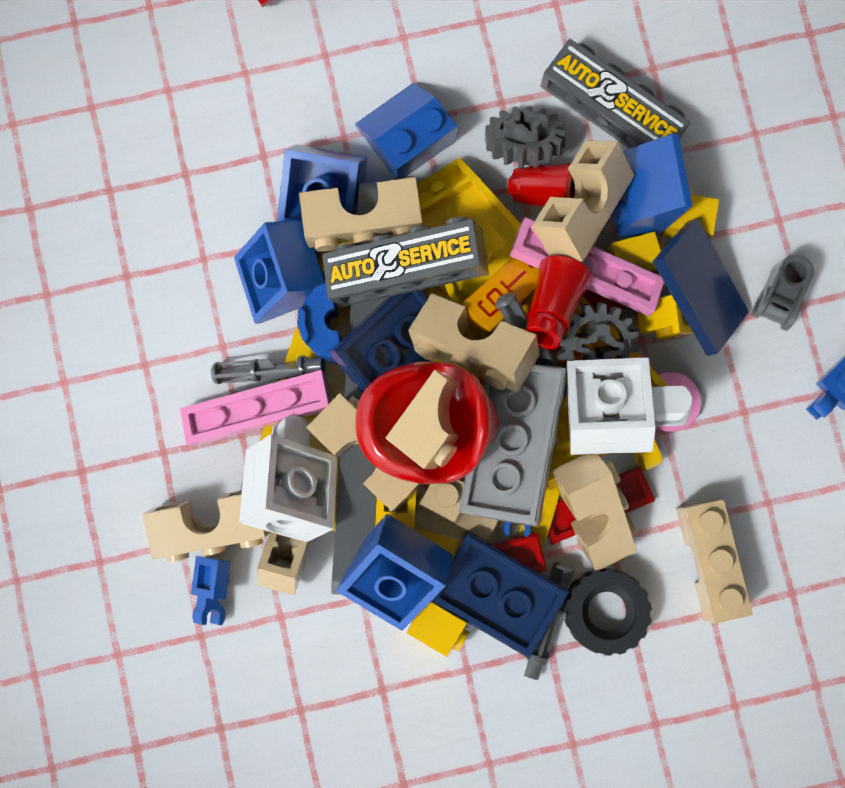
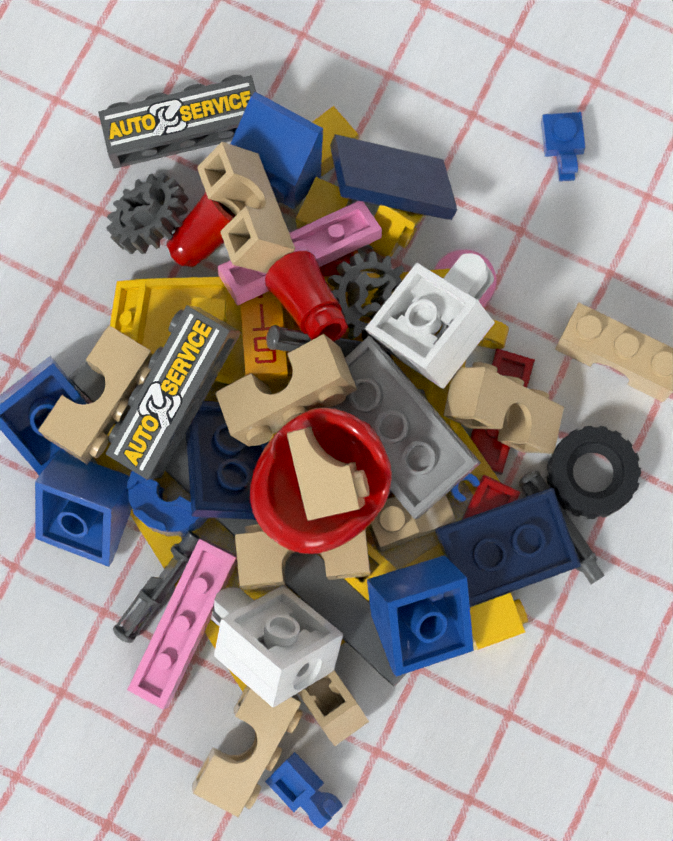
camera: 50 degrees left, 5 degrees down
(408, 130) = (56, 304): blue slope -> none
(780, 298) = (453, 125): dark grey piece -> none

